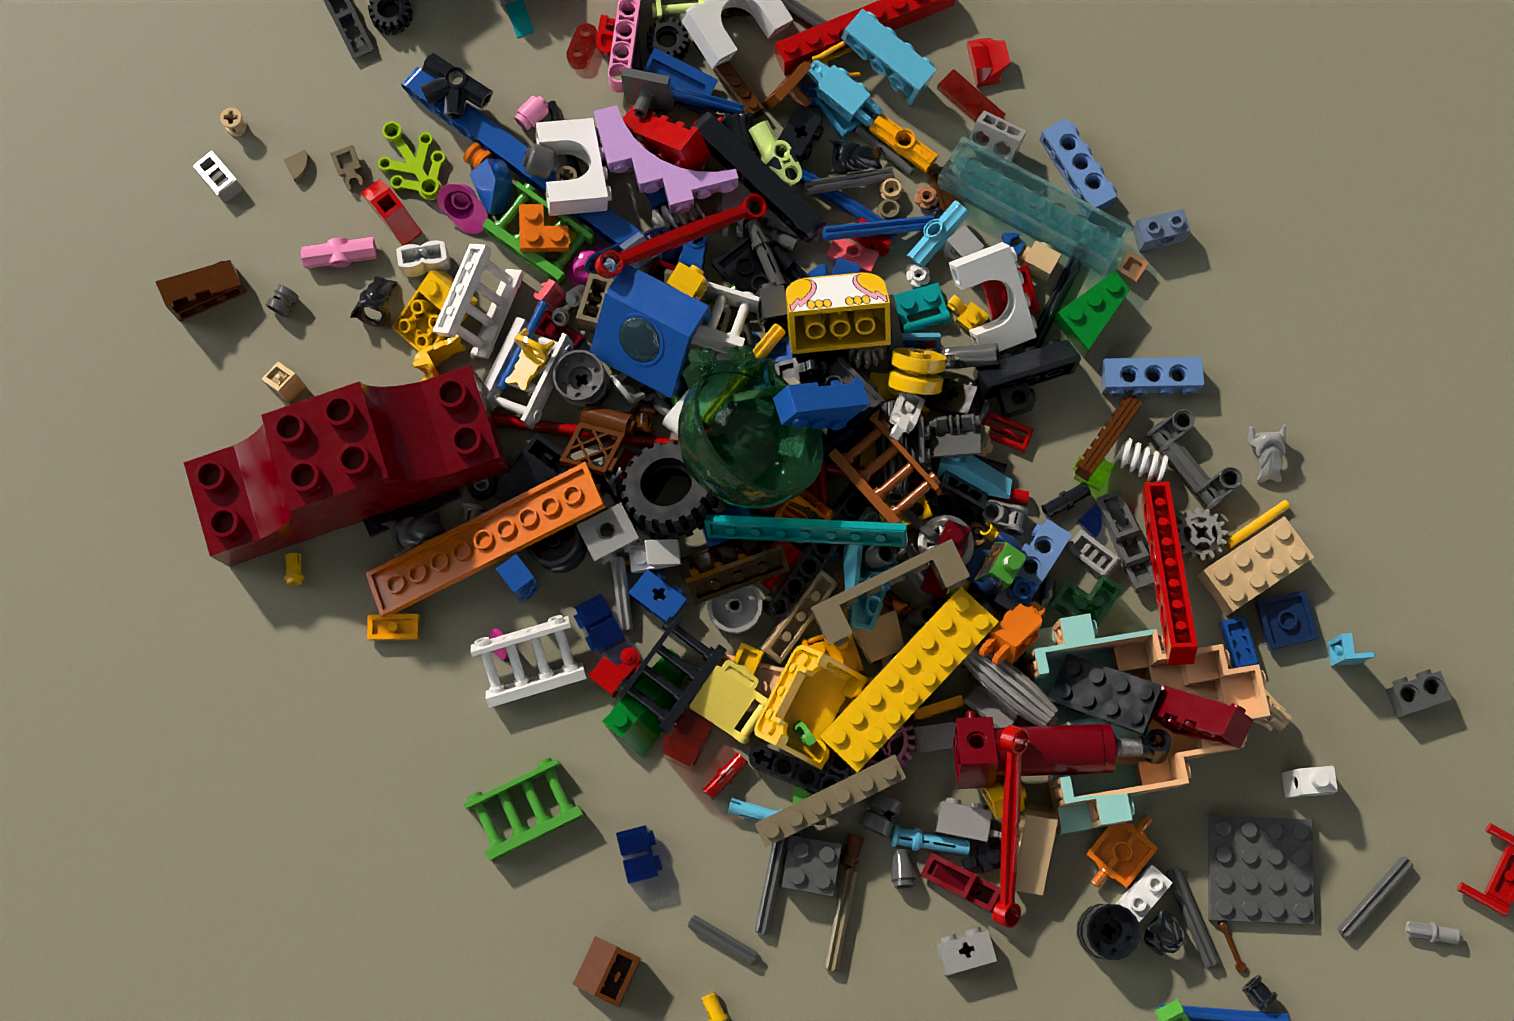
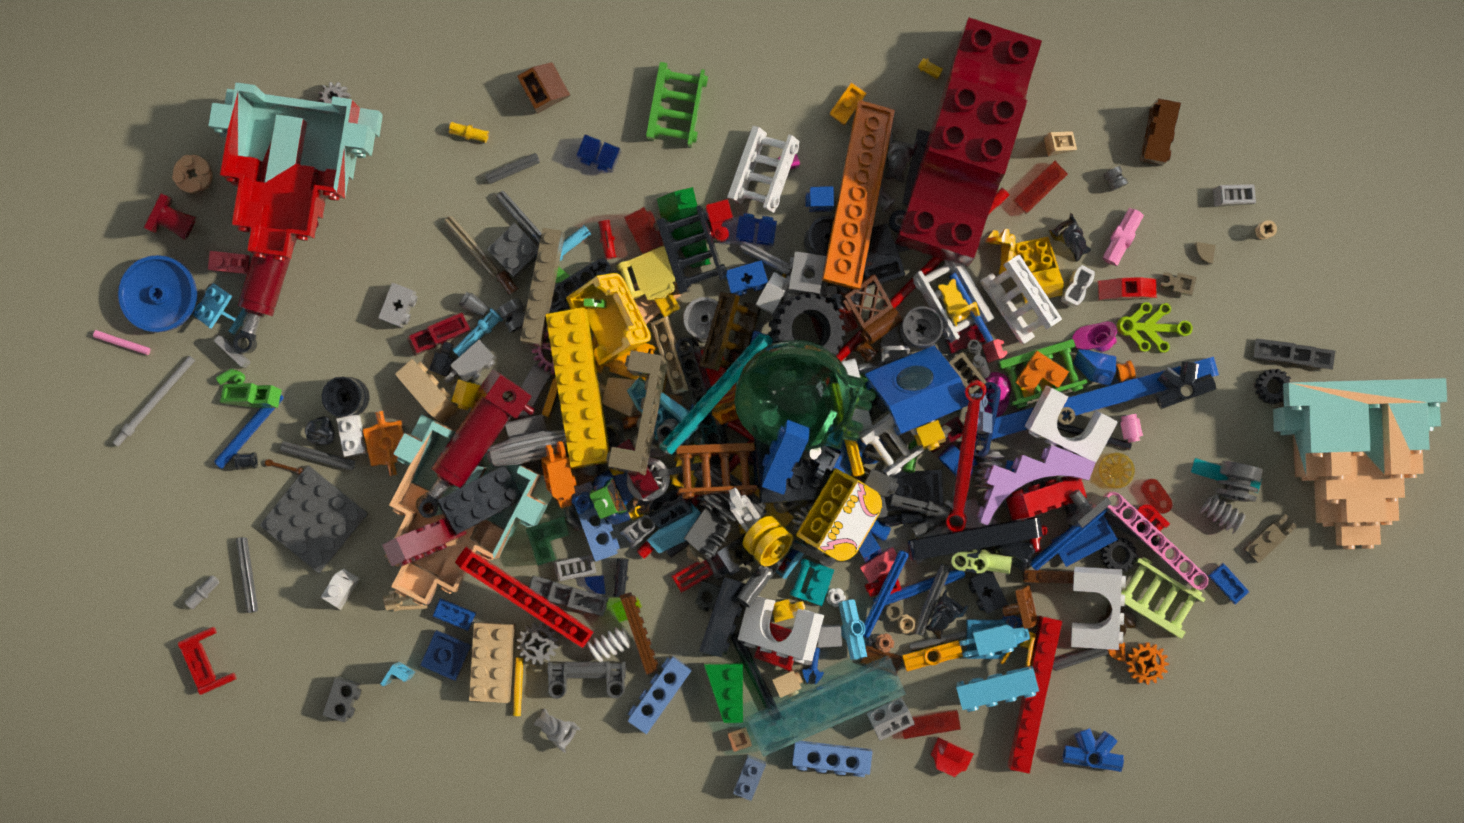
camera: 130 degrees right, 10 degrees up
(344, 368) = (1040, 187): none -> clear red plate
(540, 161) = (1088, 405): dark grey head -> none
(584, 98) = (1116, 470): none -> clear yellow wheel
(1006, 911) = (488, 417): red piece -> none

